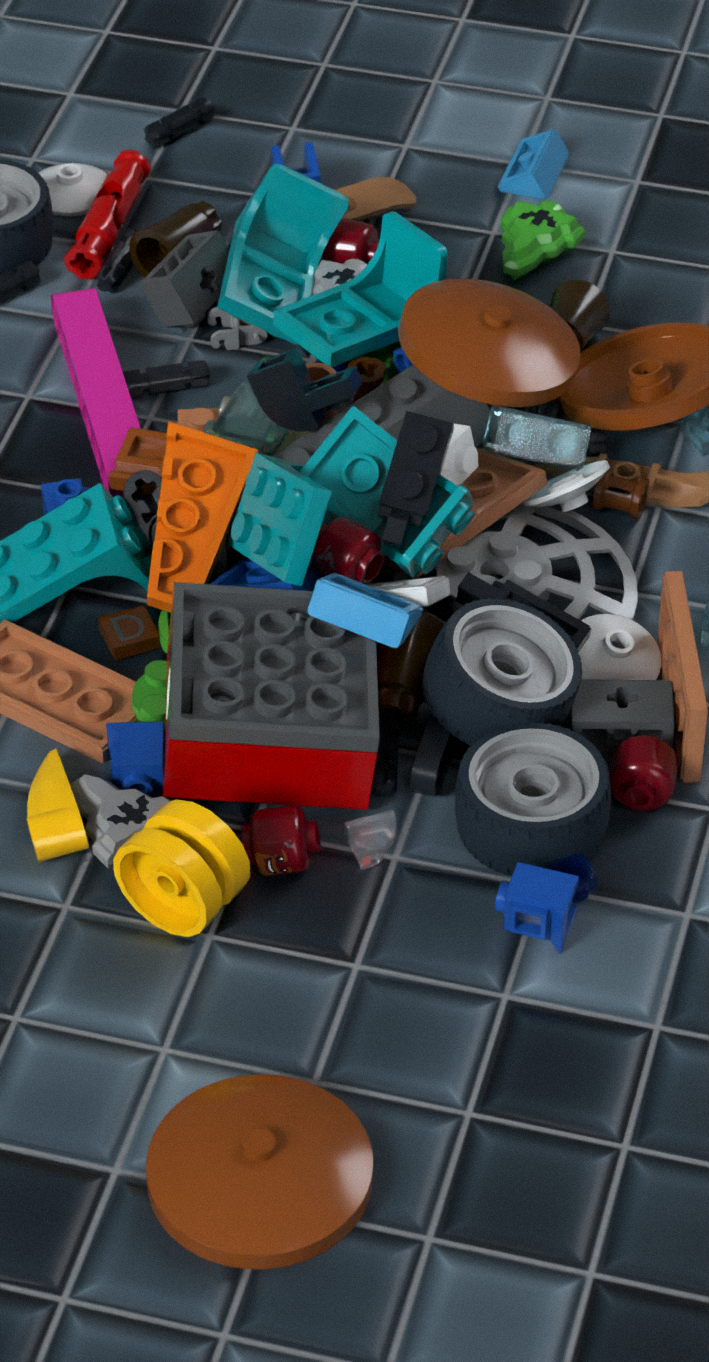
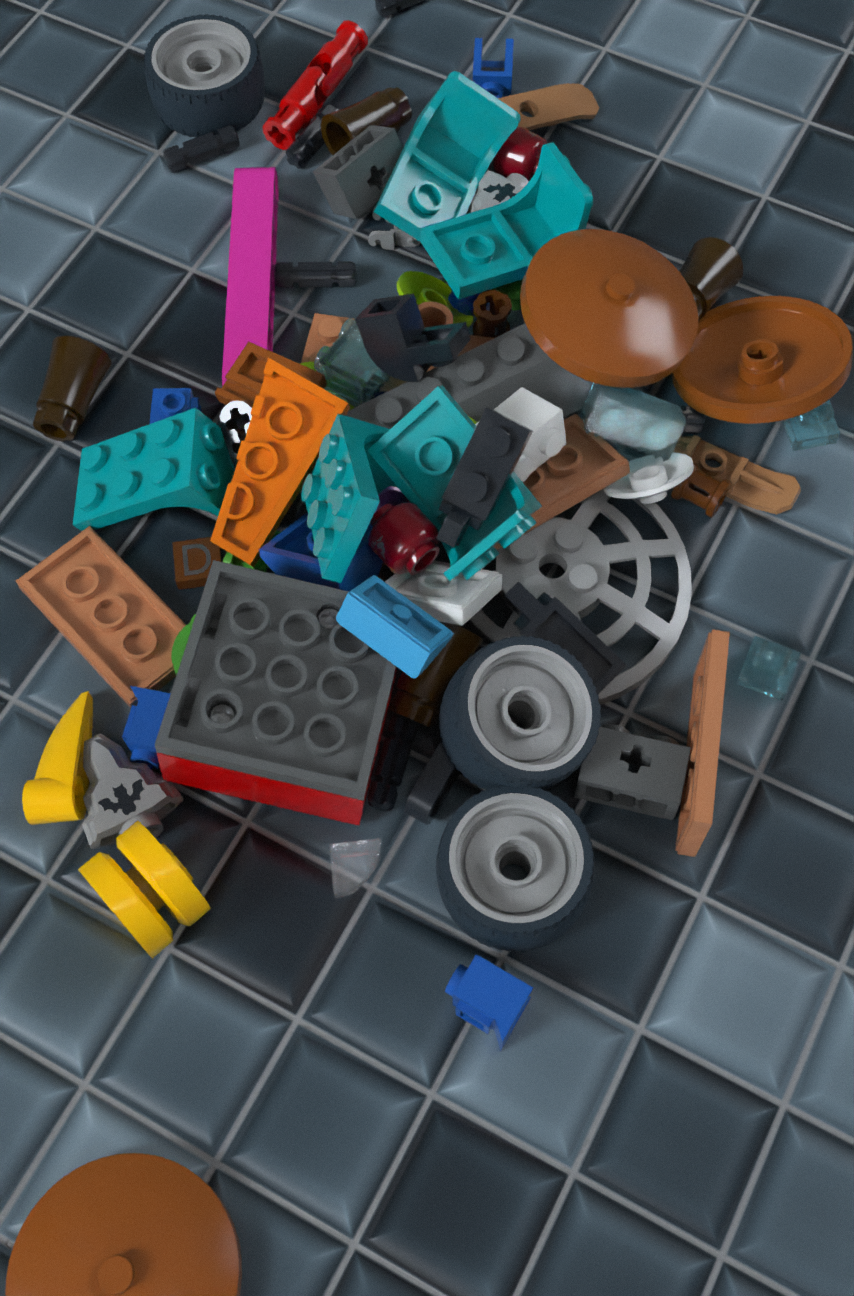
camera: 15 degrees right, 20 degrees up
(72, 187) = (290, 48): white dish -> none
(281, 840) = (259, 857): dark red head -> none
(535, 166) = (716, 90): dark azure slope -> none
(536, 235) = (696, 171): bright green rock -> none
(581, 867) = (546, 966): clear blue plate -> none
(635, 660) = (634, 705): white dish -> none
(644, 769) = (637, 848): dark red head -> none

